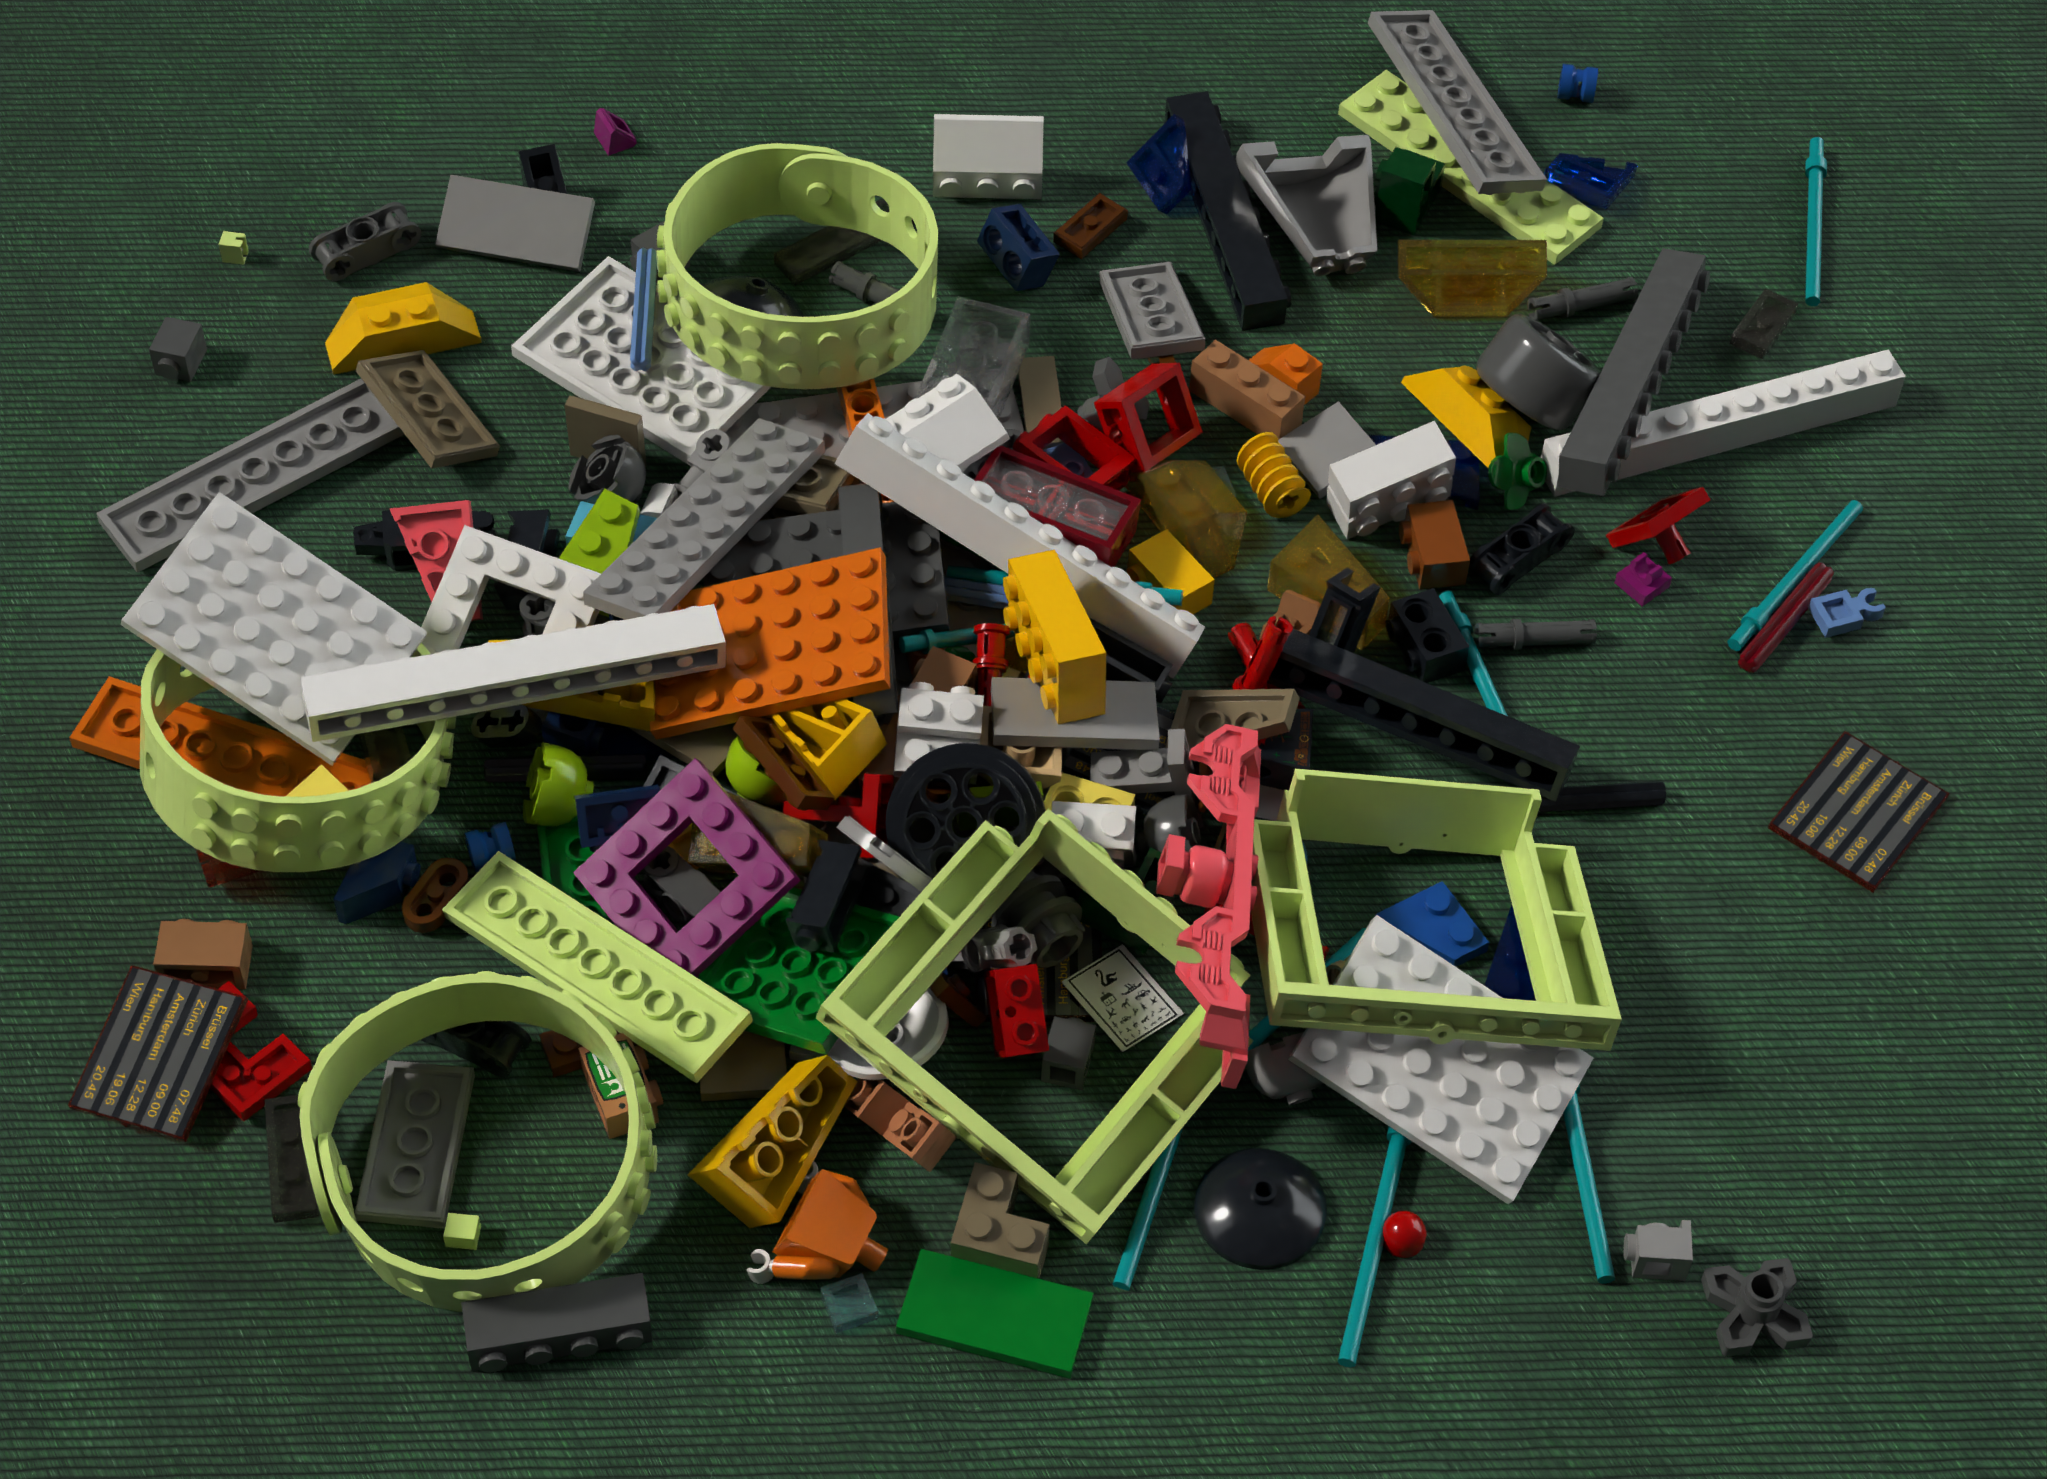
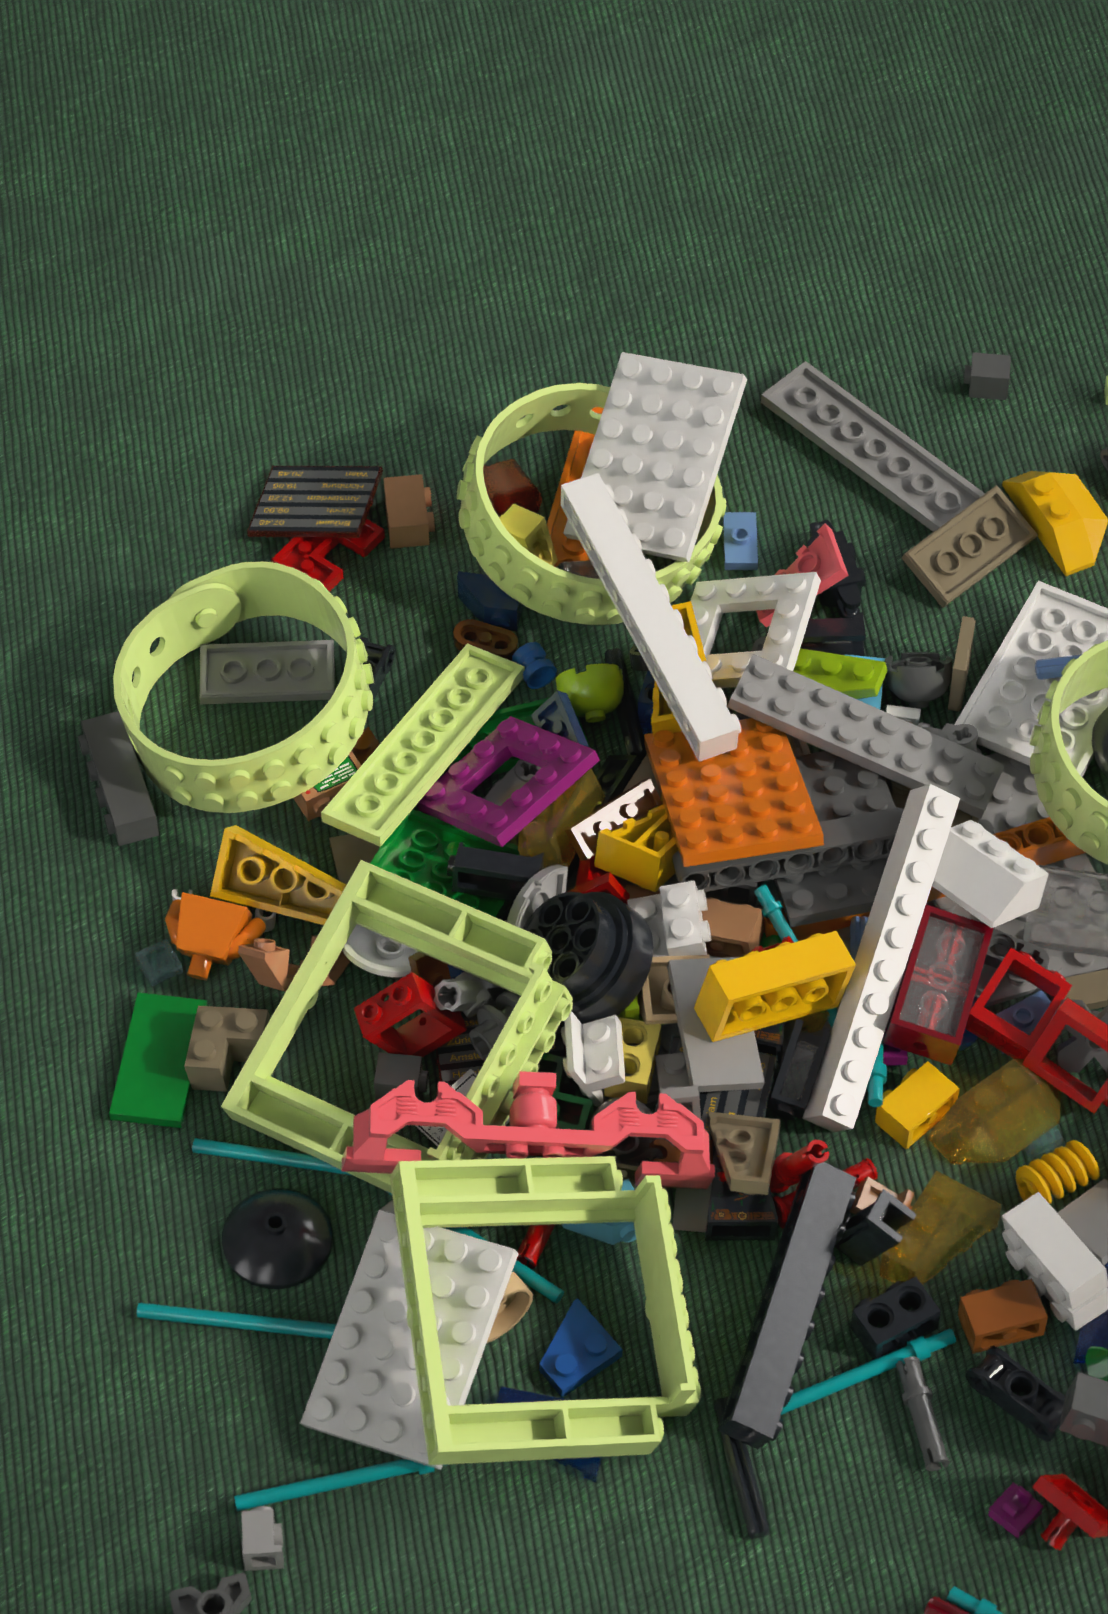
camera: 85 degrees right, 0 degrees up
(462, 1231) = (194, 711): yellowish green piece -> none
(1404, 1234) = (261, 1344): red piece -> none

